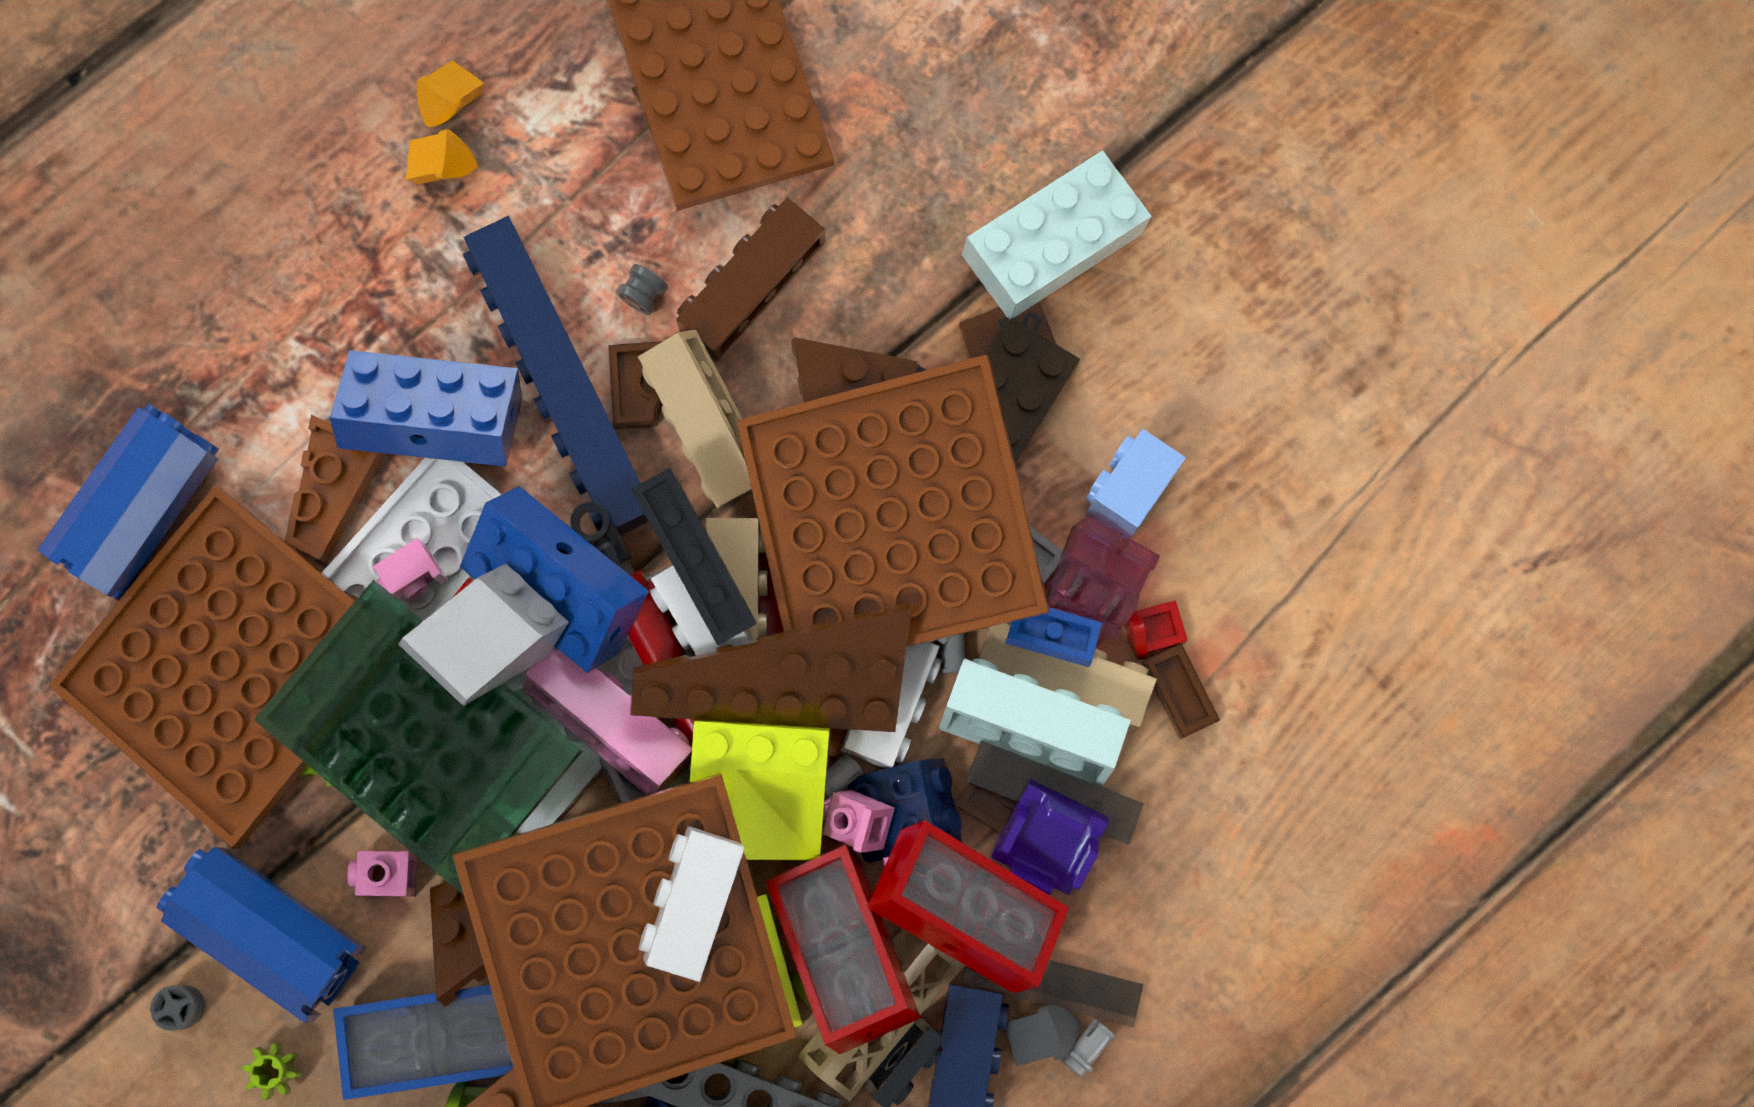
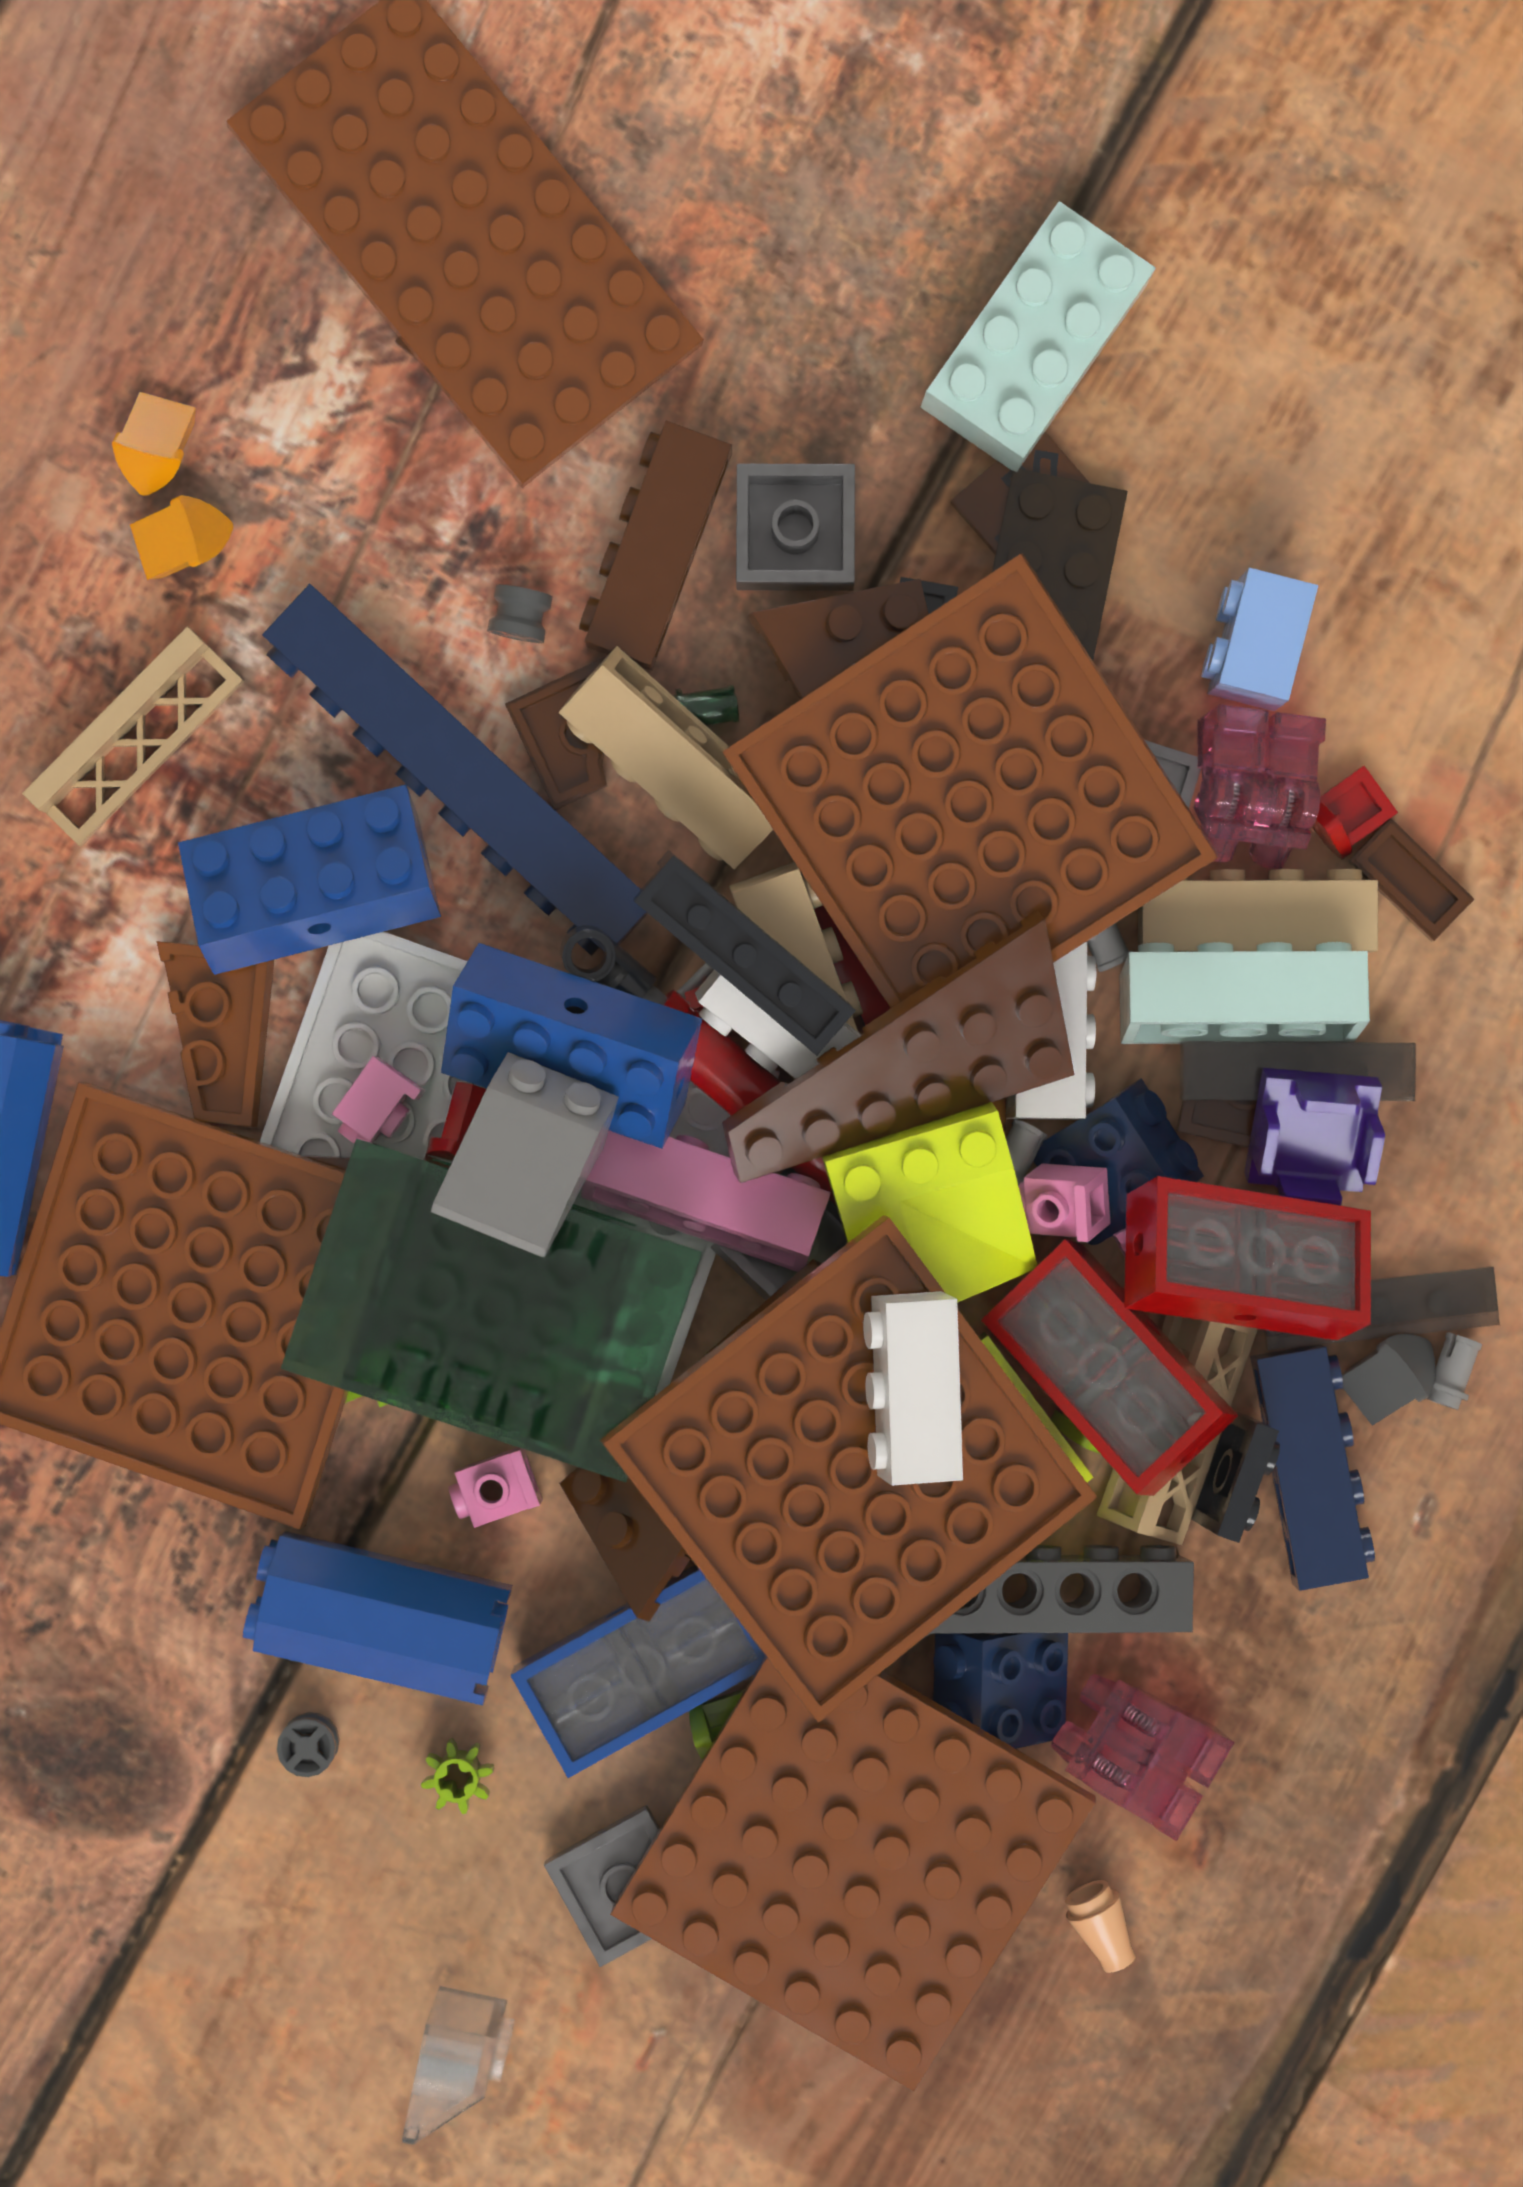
camera: 25 degrees left, 10 degrees up
(346, 261) = (117, 721): none -> tan fence
(746, 397) = (711, 705): none -> clear green pin
(846, 297) = (795, 527): none -> flat silver brick
(1057, 636) = (1241, 874): blue plate -> none

